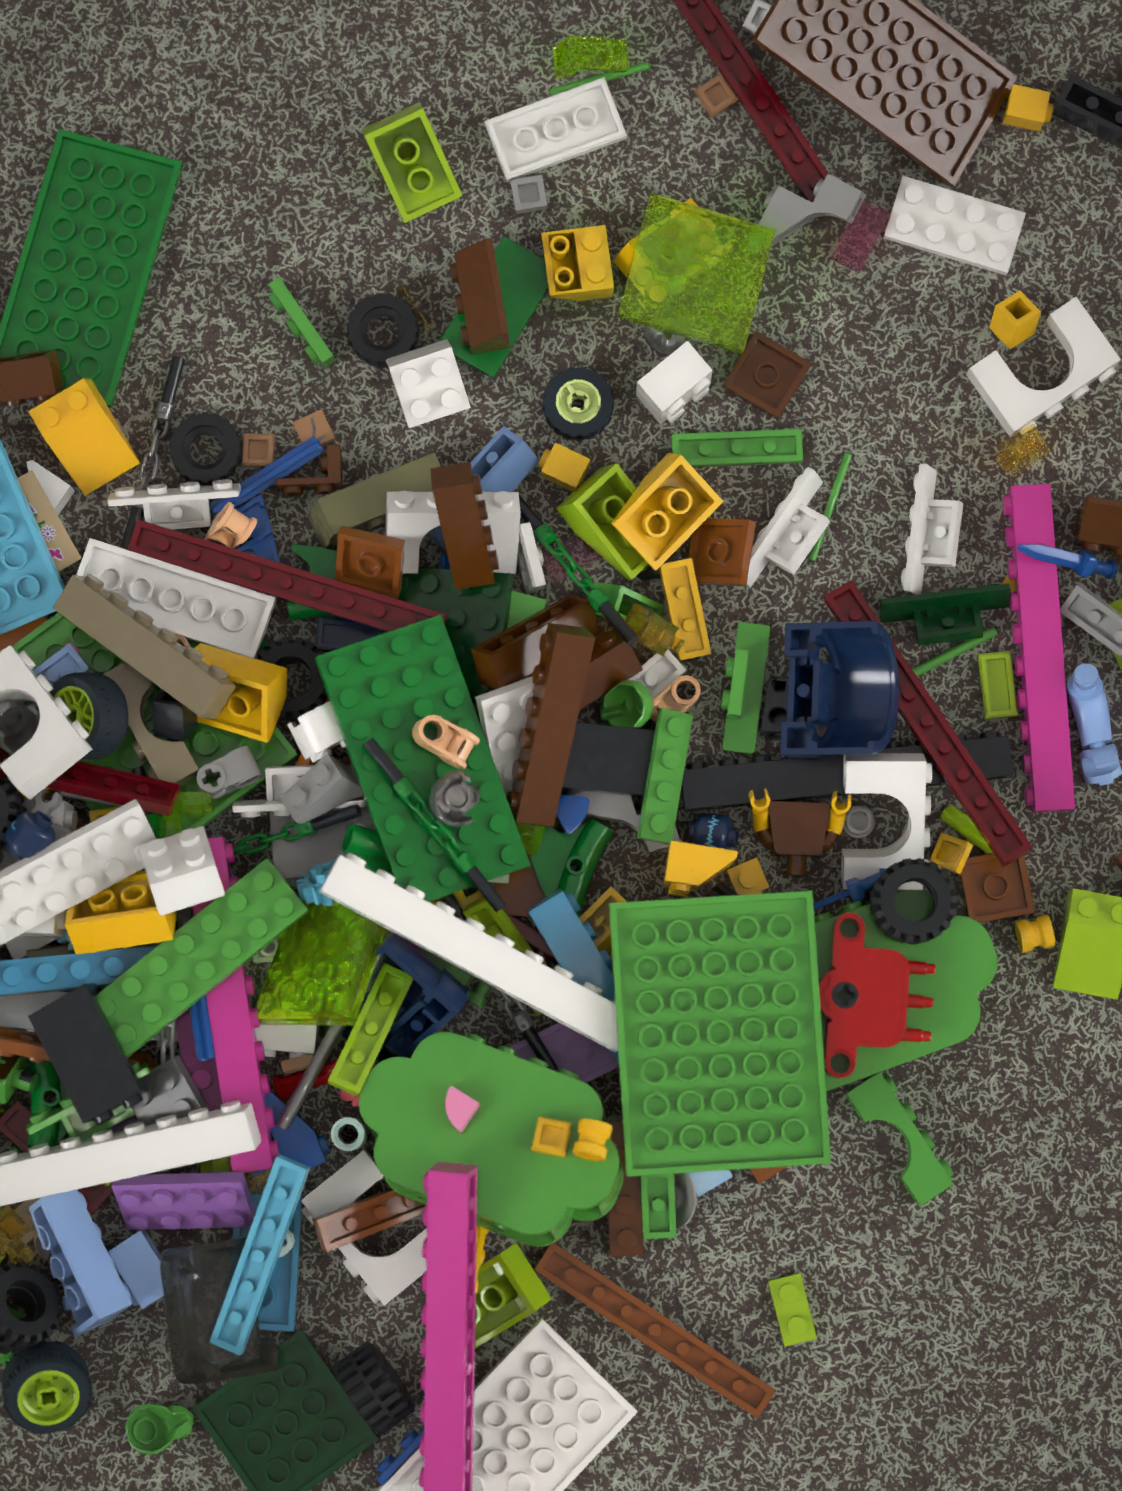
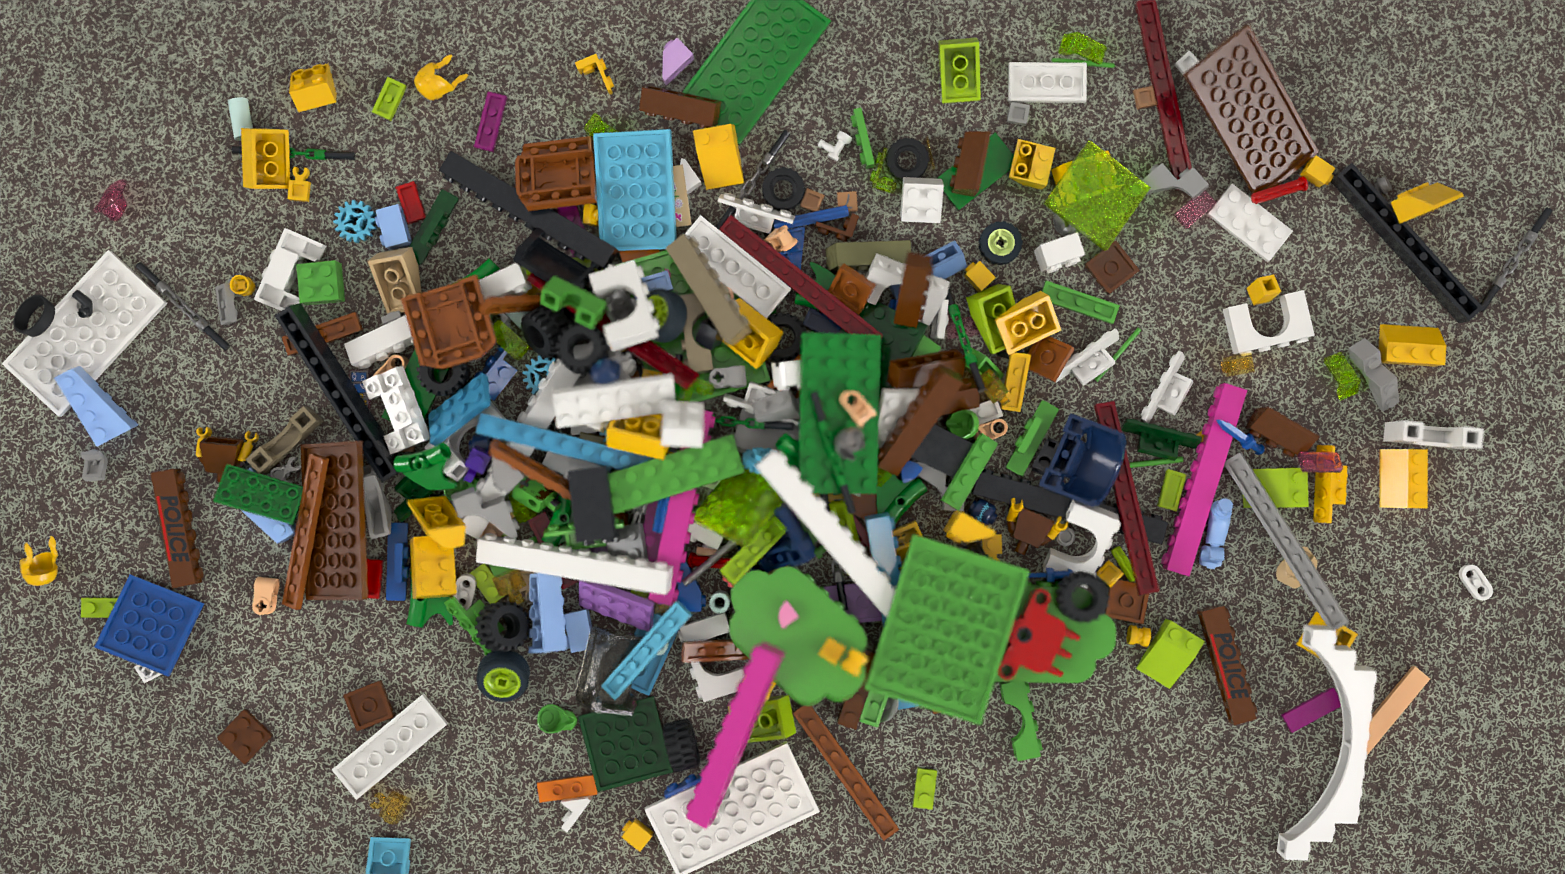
camera: 20 degrees right, 5 degrees up
(263, 360) = (834, 151): none -> white piece
(363, 380) = (885, 184): none -> clear neon green bracket
(980, 158) = (1280, 190): none -> red axle

